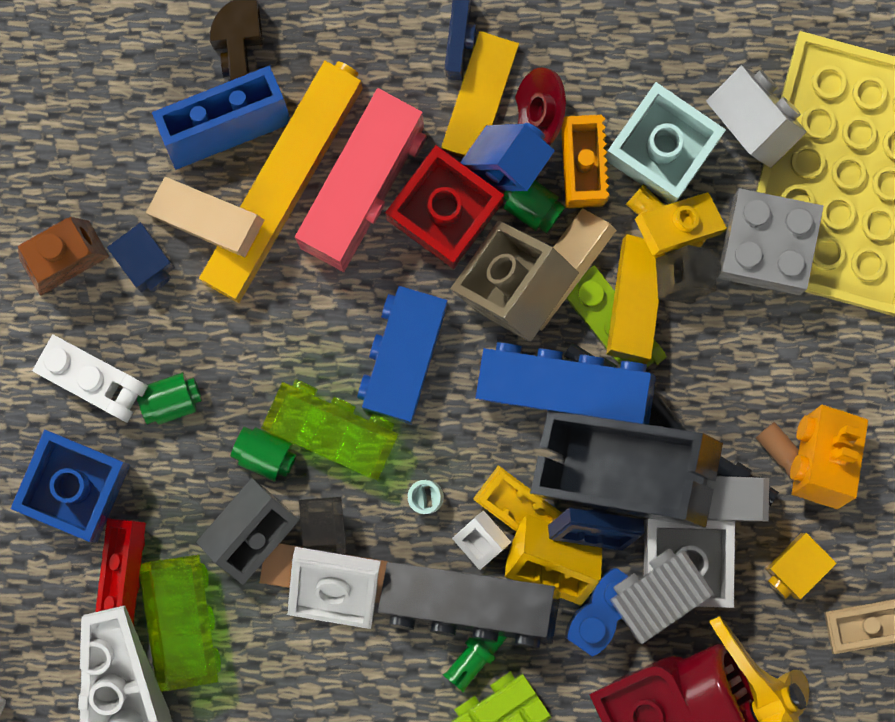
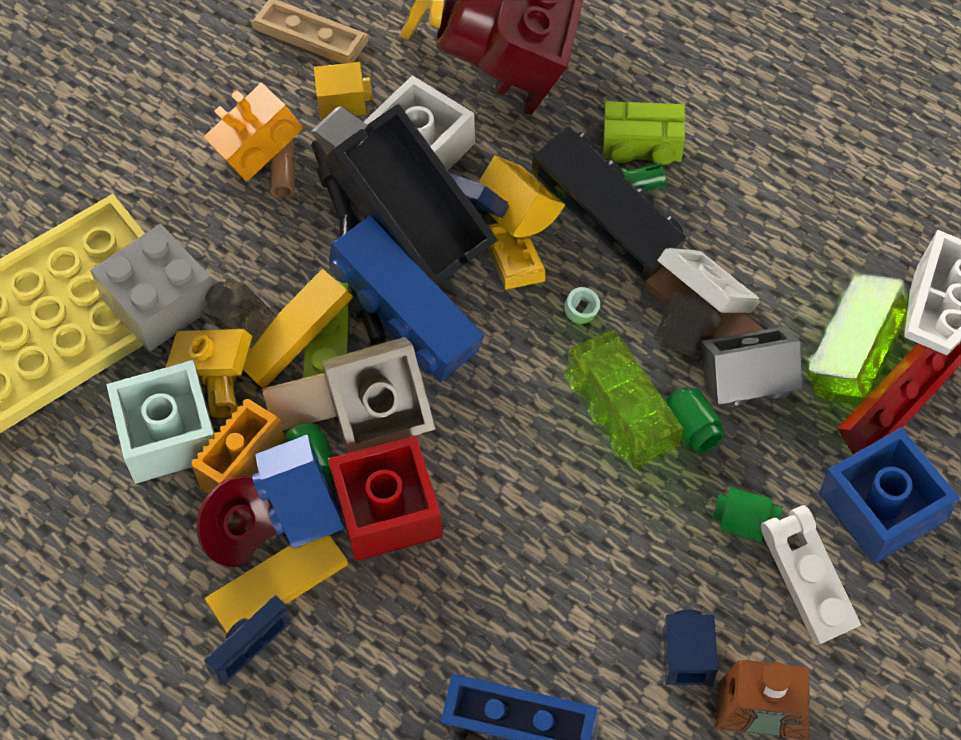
camera: 145 degrees left, 25 degrees down
(205, 216) = (605, 635): tan tile -> none
(287, 174) = (506, 626): yellow brick -> none
(361, 179) = (440, 562): coral brick -> none
(402, 354) = (515, 415): blue brick -> none
(481, 540) = (562, 249): white plate -> none
(596, 622) = (512, 140): blue brick -> none
(660, 595) = (459, 99): light grey brick -> none
(757, 116) = (71, 385): brick -> none

